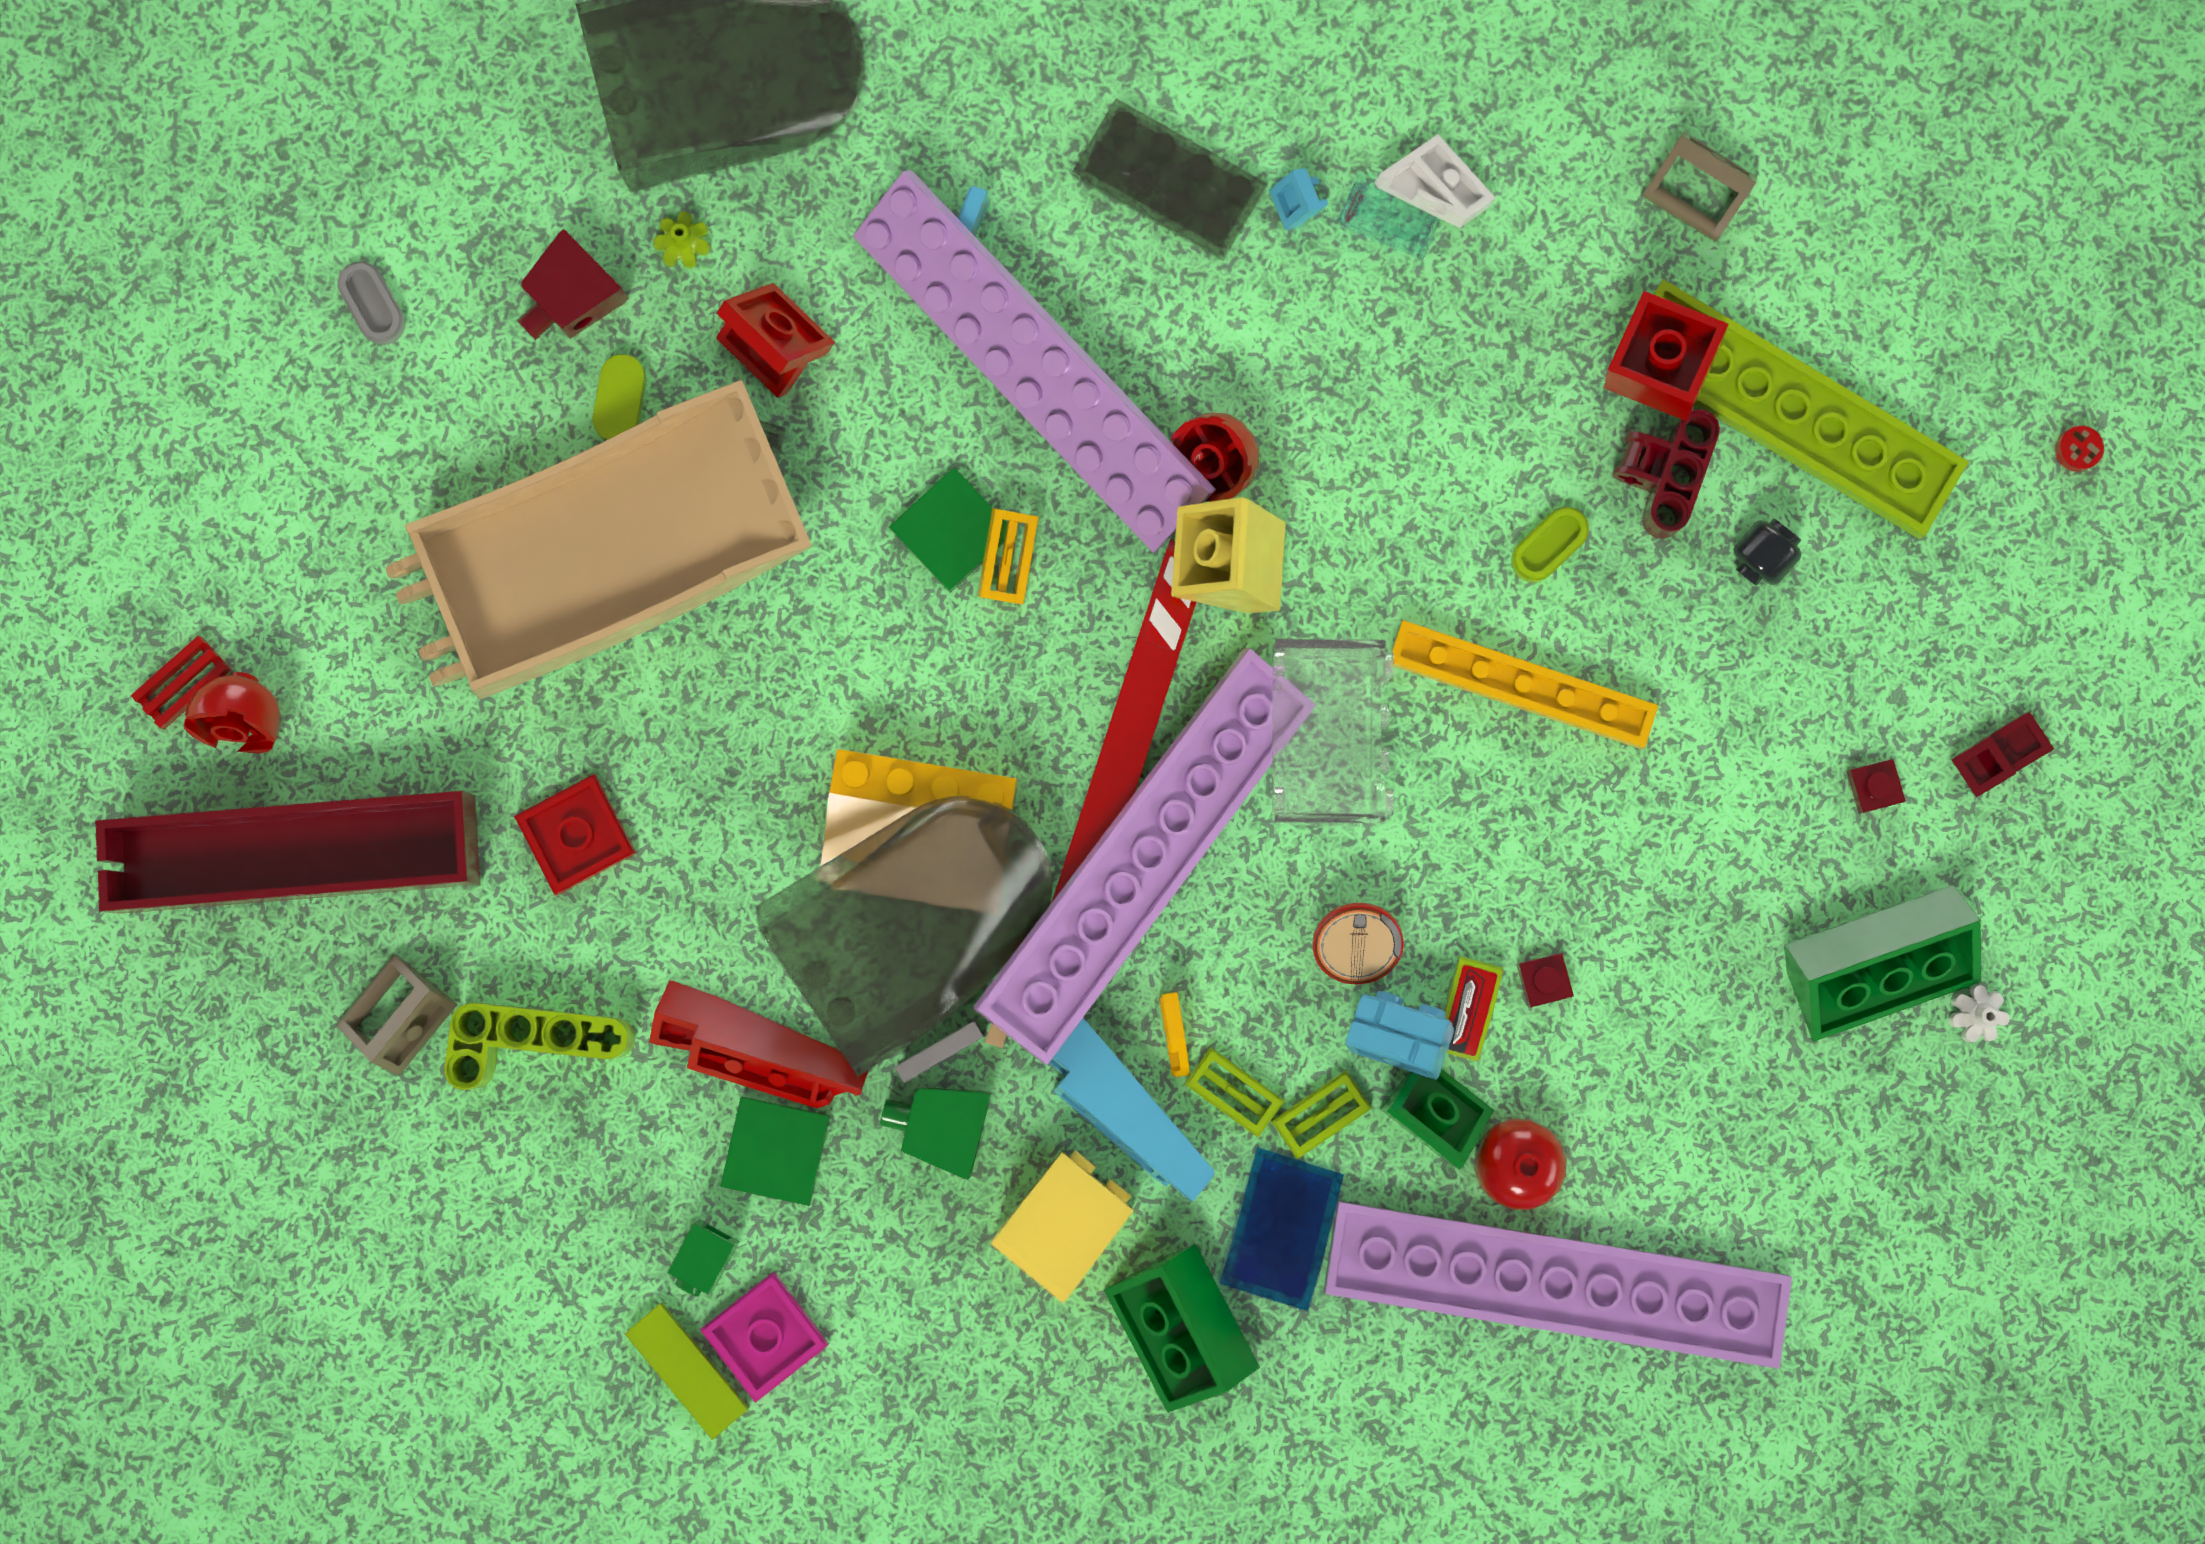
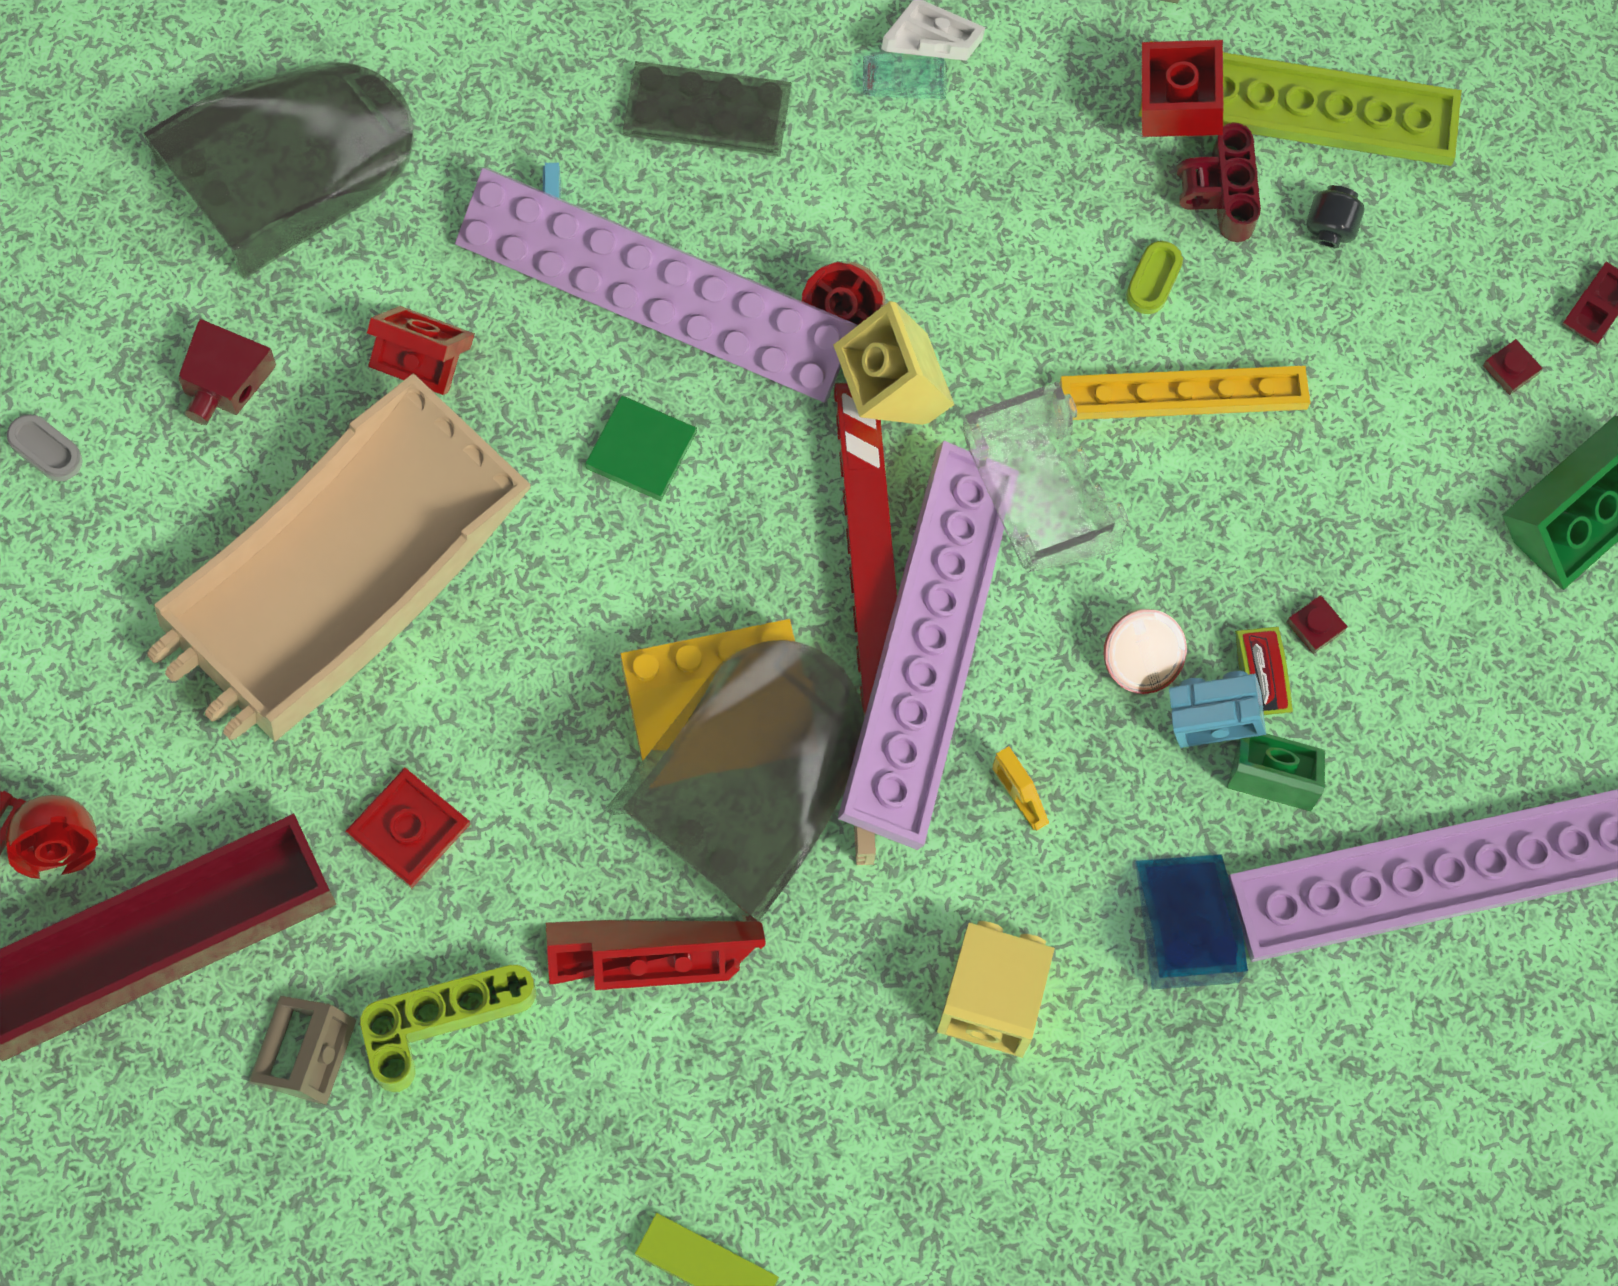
camera: 25 degrees left, 15 degrees down
(619, 396) = (299, 441): lime tile -> none
(684, 246) = (305, 301): lime plant -> none
(702, 1259) = (680, 1153): green brick -> none
(764, 1337) = (766, 1206): dark pink tile -> none
(775, 1151) = (706, 1034): green tile -> none
(939, 1051) = (820, 883): light grey tile -> none
(940, 1126) = (849, 948): green torso -> none
(1024, 559) = (684, 449): yellow tile -> none
(1125, 1113) = (1005, 871): medium azure wedge -> none
(1182, 1329) = (1141, 1041): green slope -> none
(1202, 1069) = (1125, 845): lime tile -> none
(1289, 1135) = (1160, 840): lime tile -> none
(1296, 198) = (821, 84): medium azure tile -> none
(1520, 1164) = (1370, 784): red cylinder -> none
(2079, 448) = (1542, 53): red tile -> none

